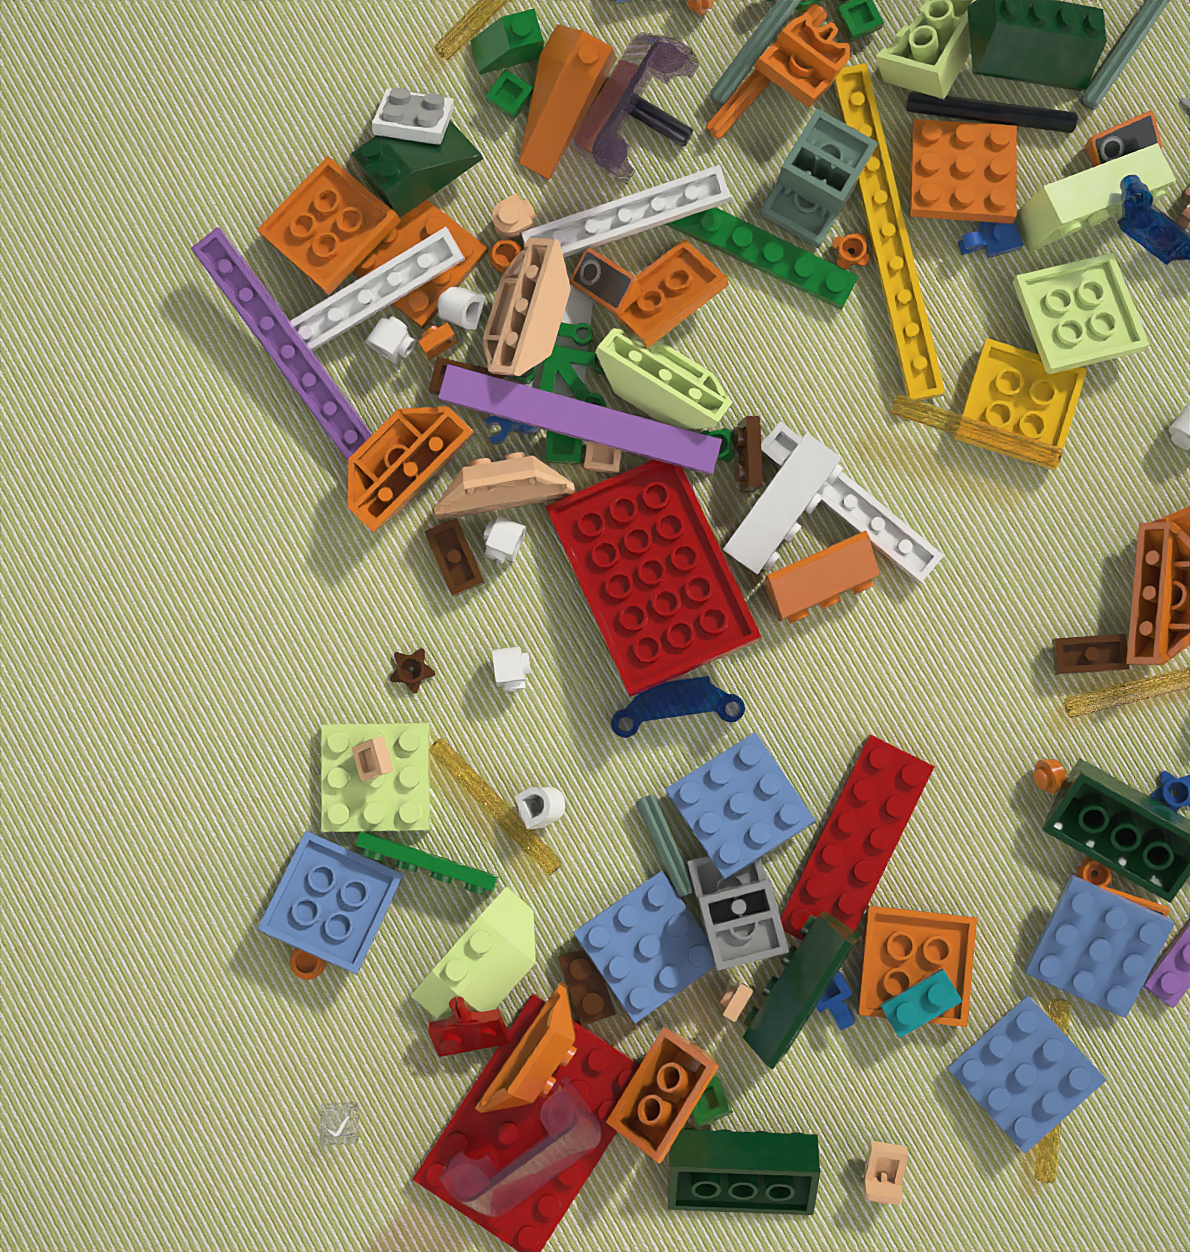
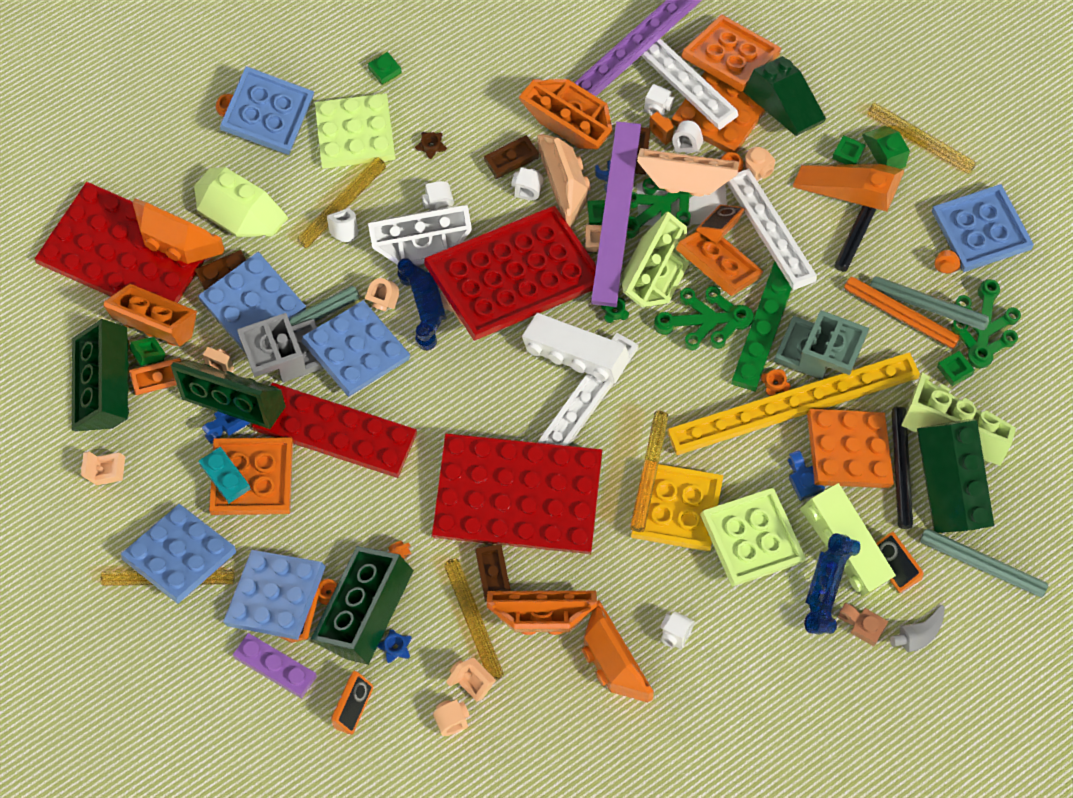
camera: 80 degrees right, 20 degrees down
(273, 724) = (384, 68): none -> green plate
(339, 1123) = (121, 136): clear slope -> none
(372, 759) = (365, 119): light nougat plate -> none
(412, 858) = (301, 156): green plate -> none
(413, 116) = (818, 92): piece -> none
(467, 1030) = (187, 197): red plate -> none
(494, 1192) = (119, 251): clear pink windscreen -> none
(570, 697) = (420, 233): none -> white wedge
(644, 58) = (819, 206): windscreen -> none
(659, 760) = (382, 294): none -> light nougat plate
(744, 1088) = (153, 376): none -> orange slope
(746, 323) = (707, 318): none -> green plant
(748, 441) = (621, 324): reddish brown plate -> none
(804, 59) = (911, 327): orange plate -> none
(822, 578) = (525, 379): orange slope -> none
(982, 609) = (517, 493): none -> red plate

